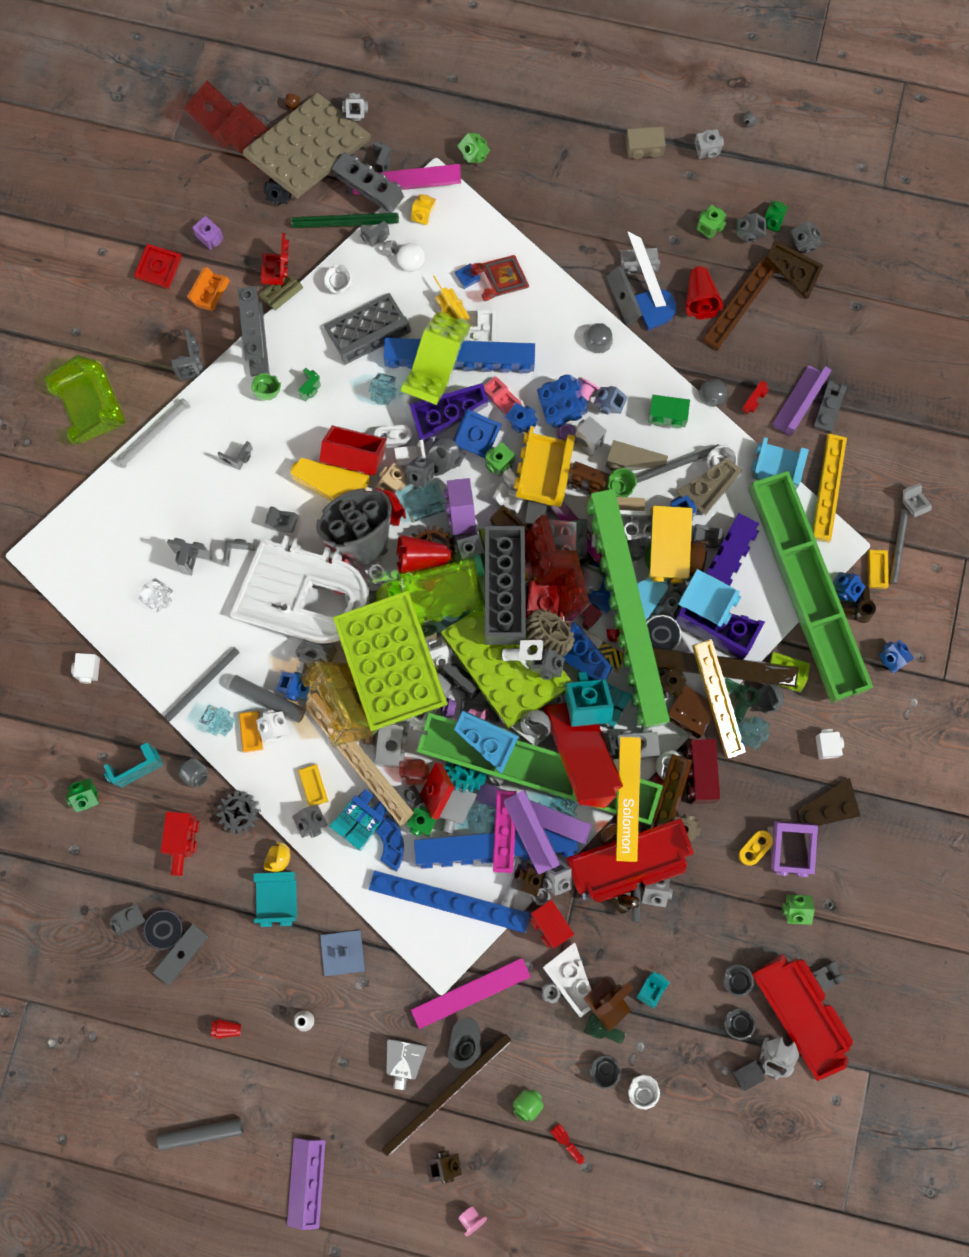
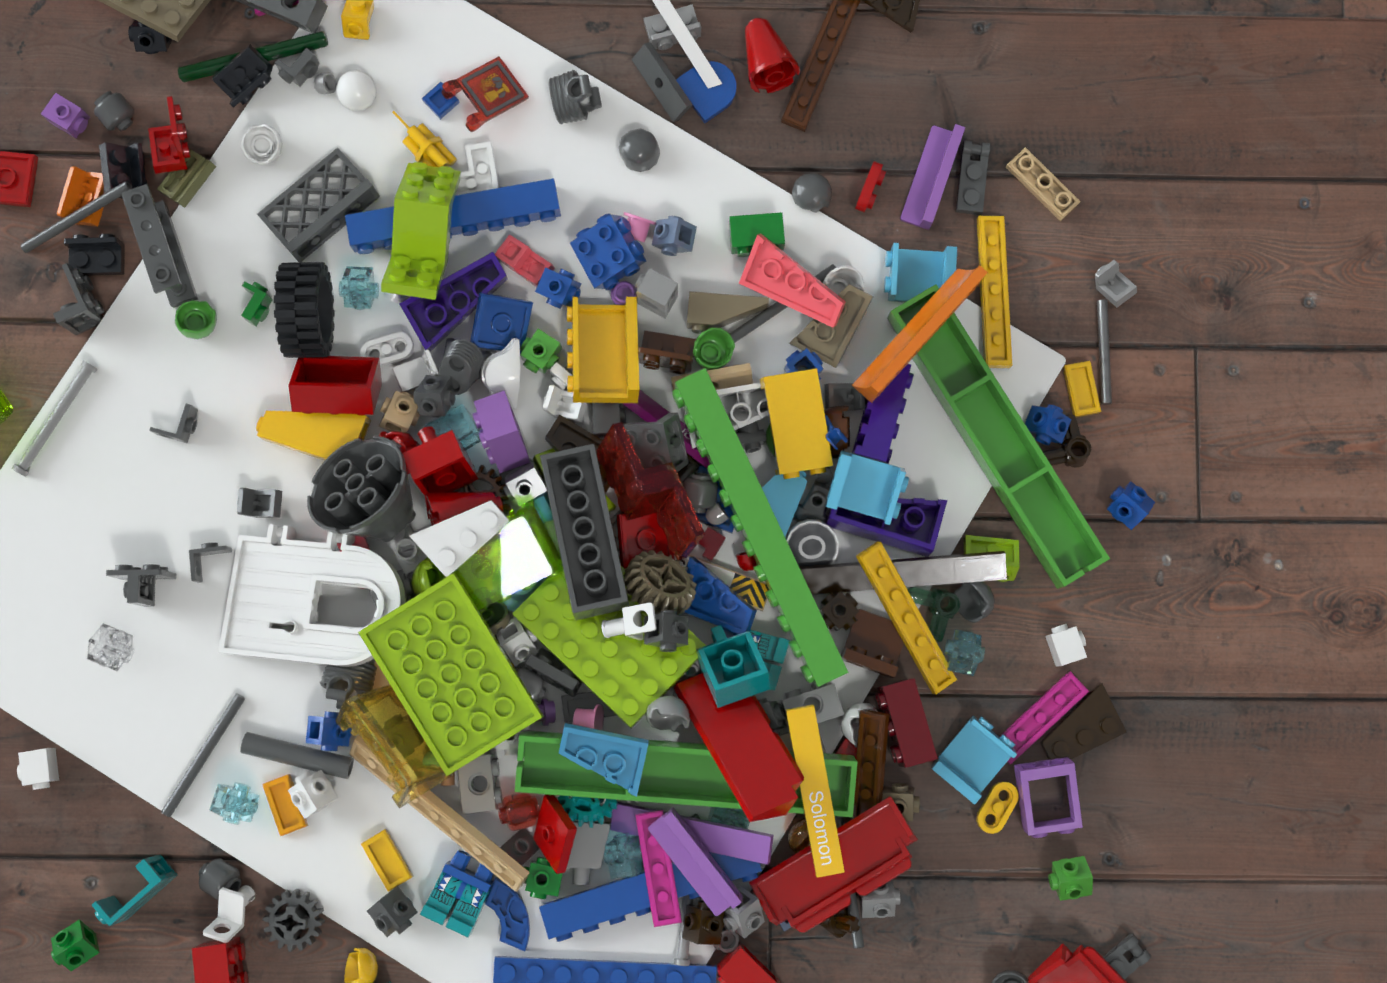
camera: 15 degrees left, 5 degrees up
(196, 796) = (230, 913): none -> white bracket
(199, 301) = (75, 217): none -> dark grey piece
(207, 329) = (96, 255): none -> black bracket
(238, 275) = (122, 164): none -> black bracket
(241, 236) = (114, 111): none -> dark grey head
(336, 230) = (244, 75): none -> black bracket
(343, 393) = (304, 309): none -> black tyre
(414, 516) = (439, 462): none -> red brick
(419, 566) = (461, 536): none -> white wing
(471, 466) = (502, 372): none -> white hat
(555, 289) = (568, 92): none -> dark grey piece
(598, 597) = (716, 514): none -> light grey hinge
(682, 446) = (787, 282): none -> coral wing
(694, 557) = (834, 434): none -> blue hand
(747, 808) = (974, 758): none -> medium azure panel
(769, 500) = (918, 332): none -> orange arch
(799, 792) = (1045, 713): none -> dark pink tile
(885, 431) = (1054, 195): none -> tan tile

